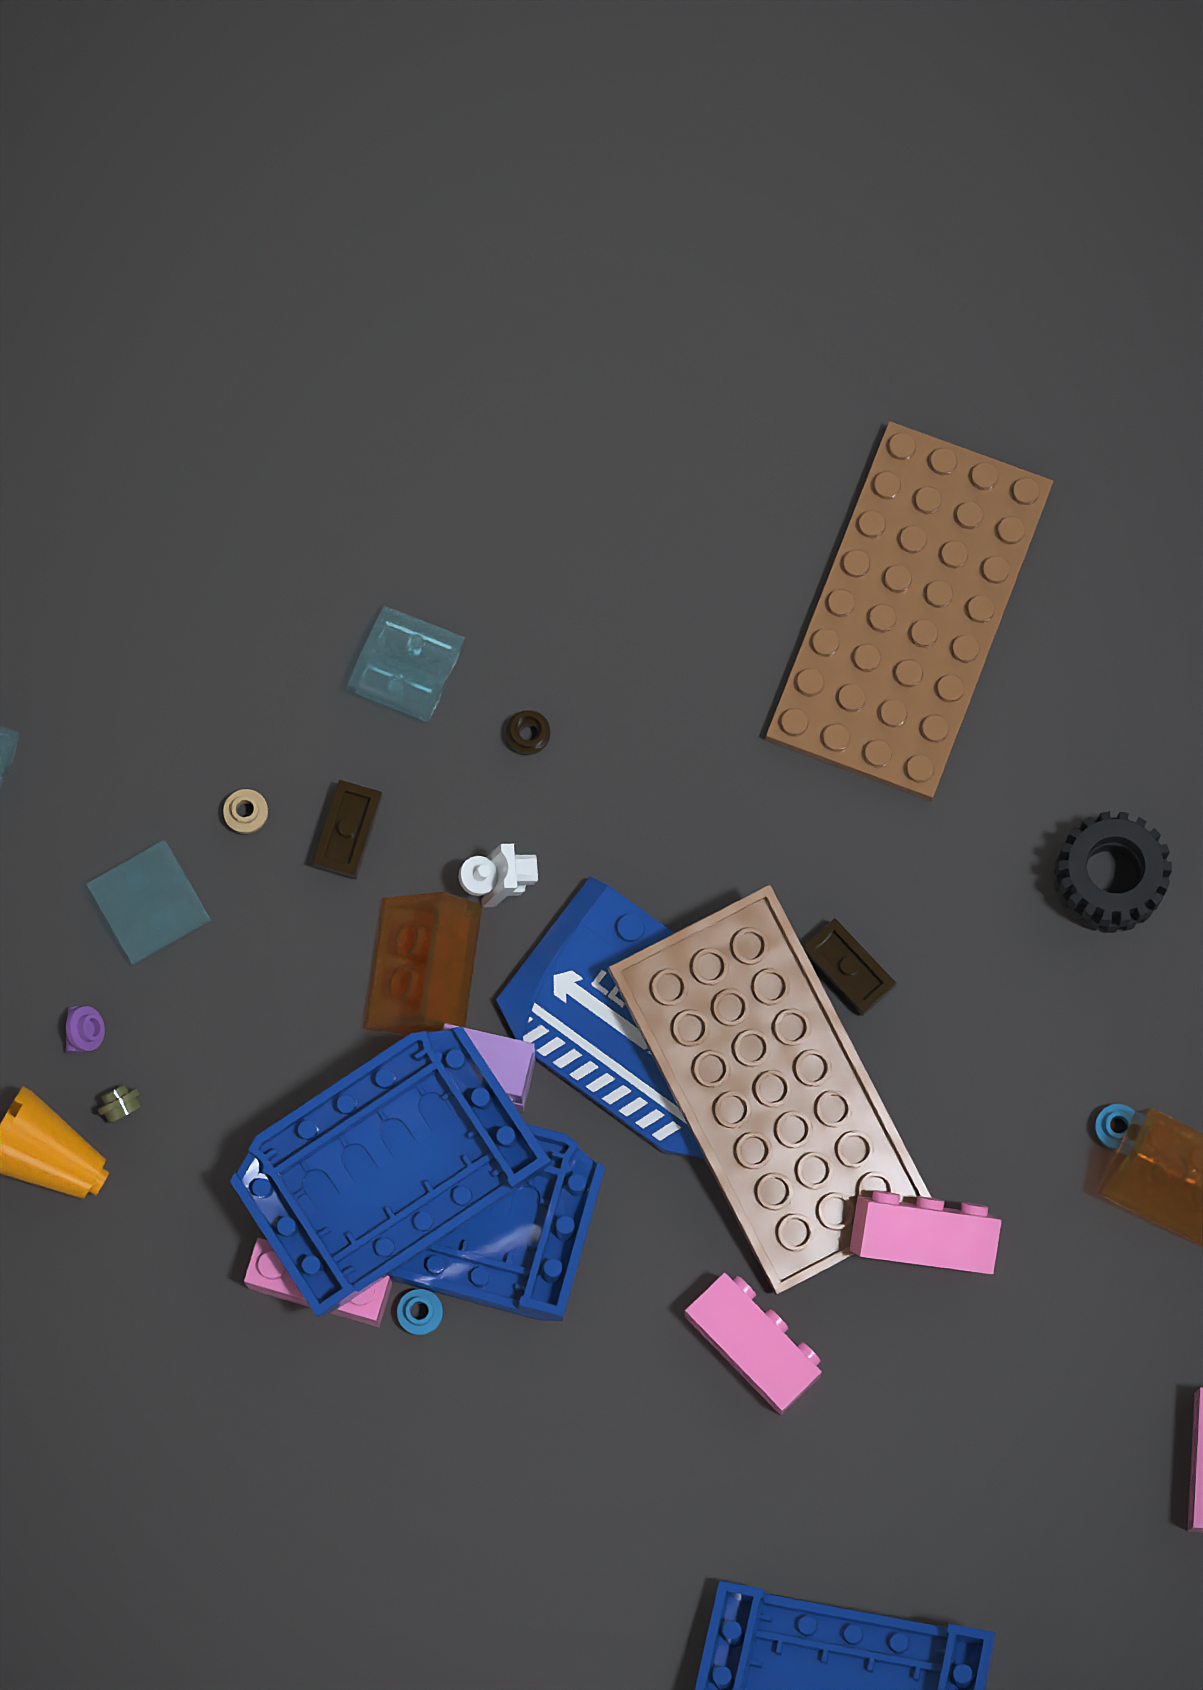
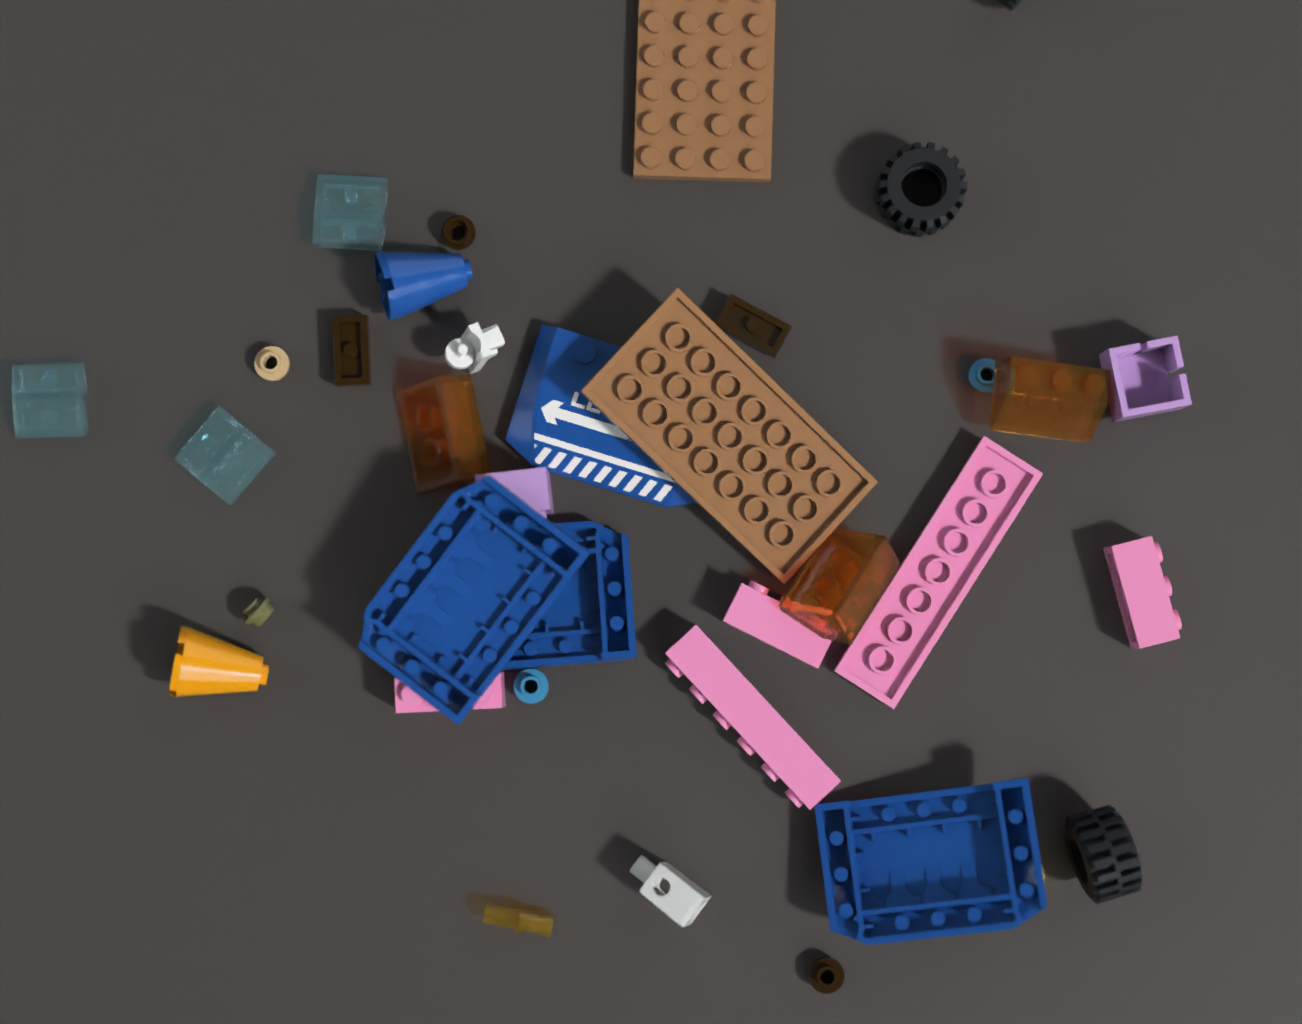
camera: 20 degrees left, 10 degrees up
(83, 1029) = (212, 566): medium lavender plate -> none
(300, 1595) = (520, 920): none -> clear yellow axle
(459, 770) = (418, 279): none -> blue cone
(511, 1634) = (684, 898): none -> white torso
(679, 1445) = (752, 717): none -> bright pink brick
(847, 1317) = (841, 584): none -> clear orange slope
(925, 1232) = (876, 503): bright pink brick -> none
(974, 1348) = (938, 572): none -> bright pink plate

